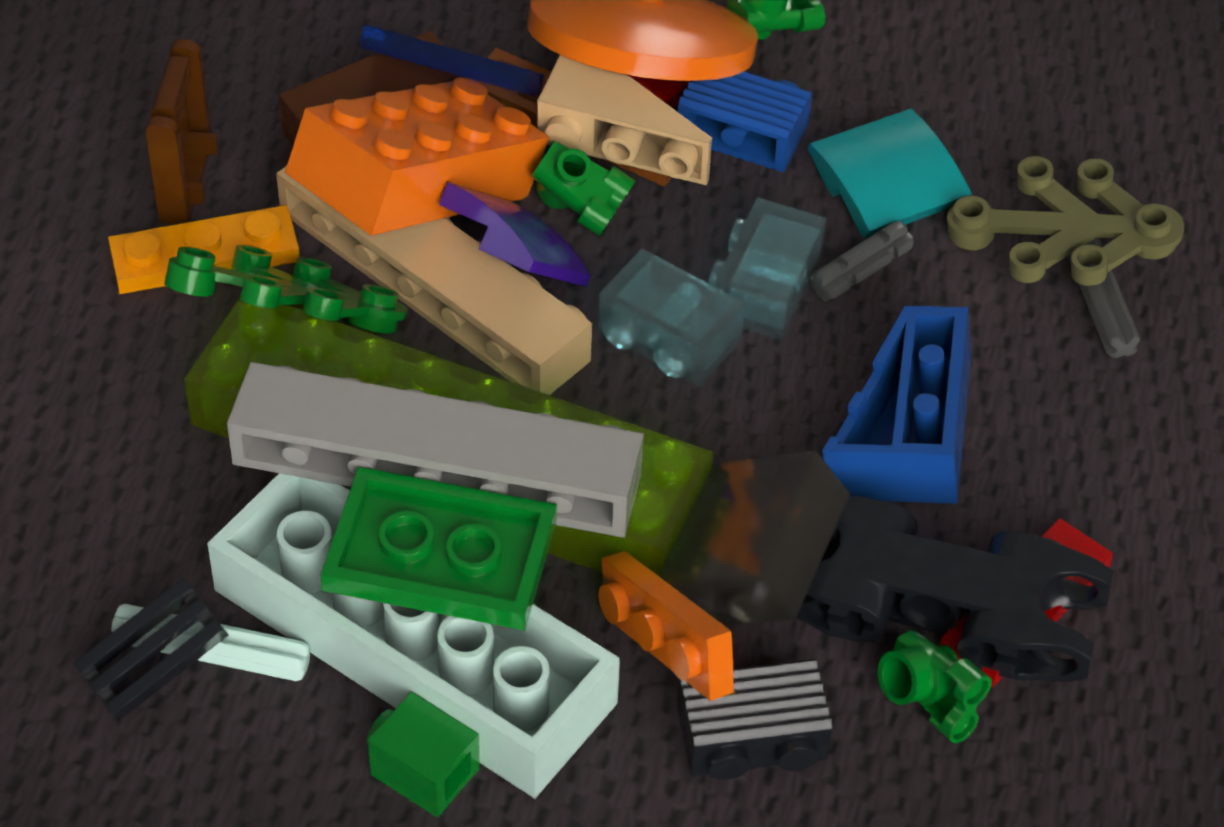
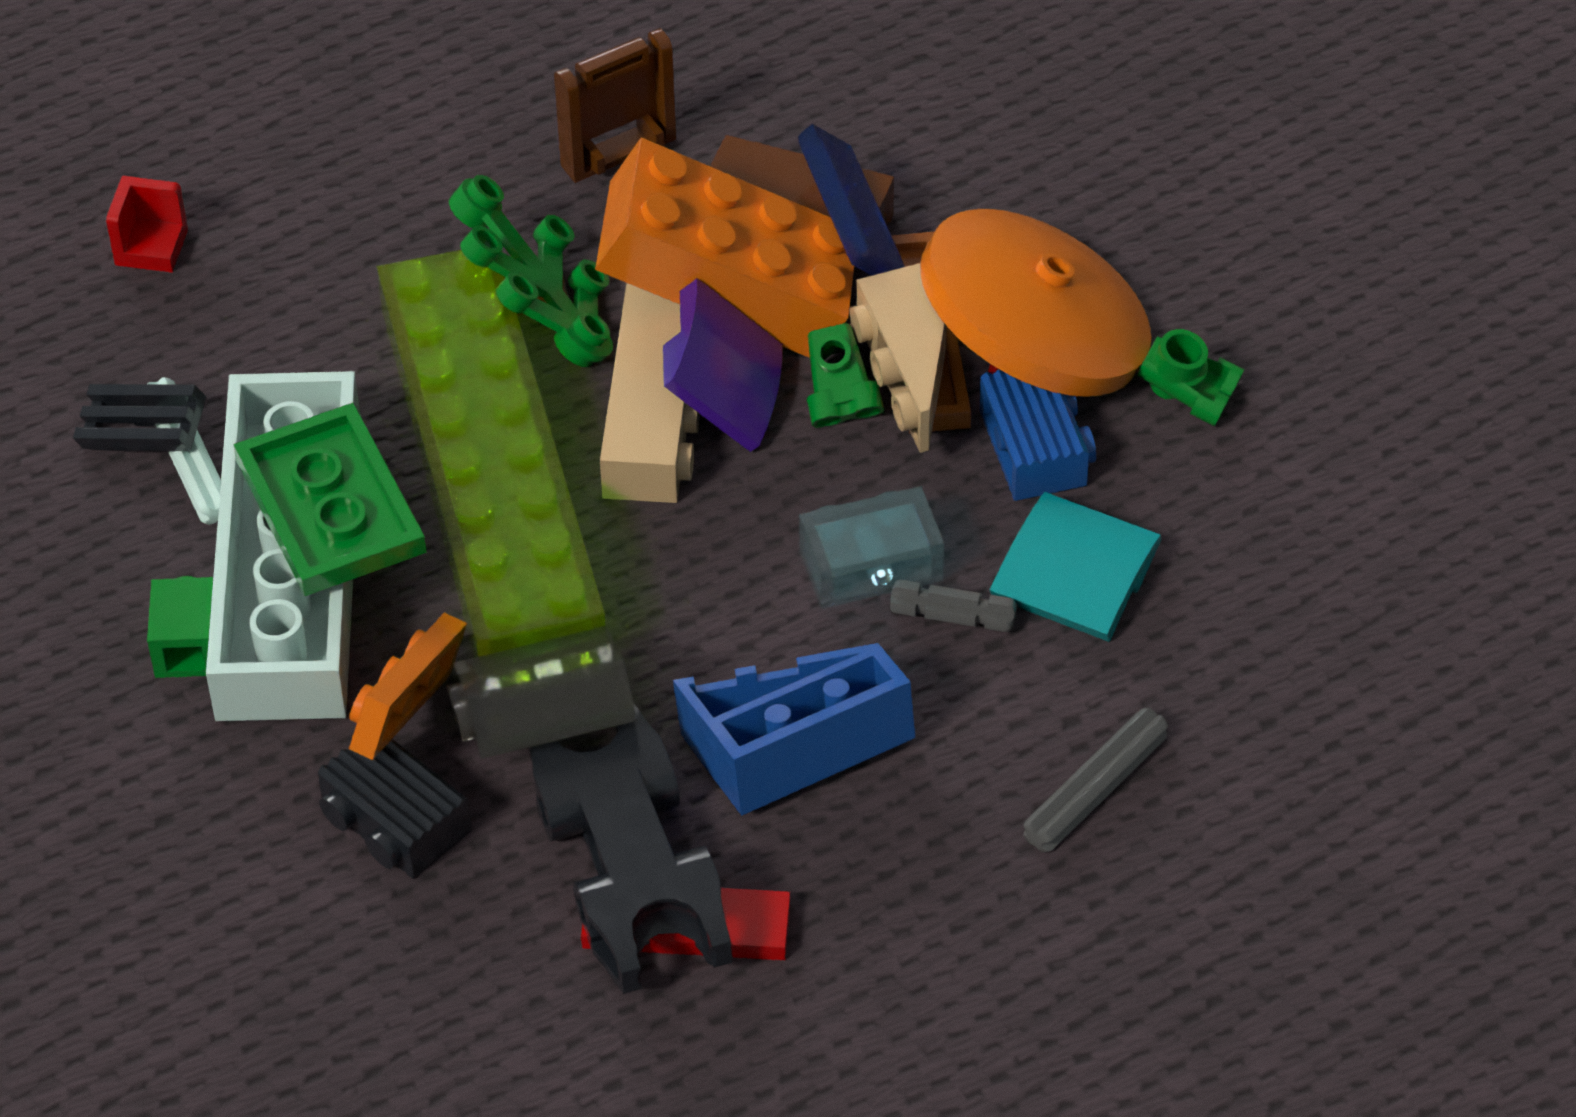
camera: 55 degrees right, 0 degrees up
(144, 255) = (536, 191): light orange plate -> none
(333, 425) = (418, 434): light grey brick -> none
(670, 317) = (751, 517): clear light blue brick -> none
(937, 680) = (538, 891): green plate -> none
(1138, 229) = (1174, 773): olive plant -> none

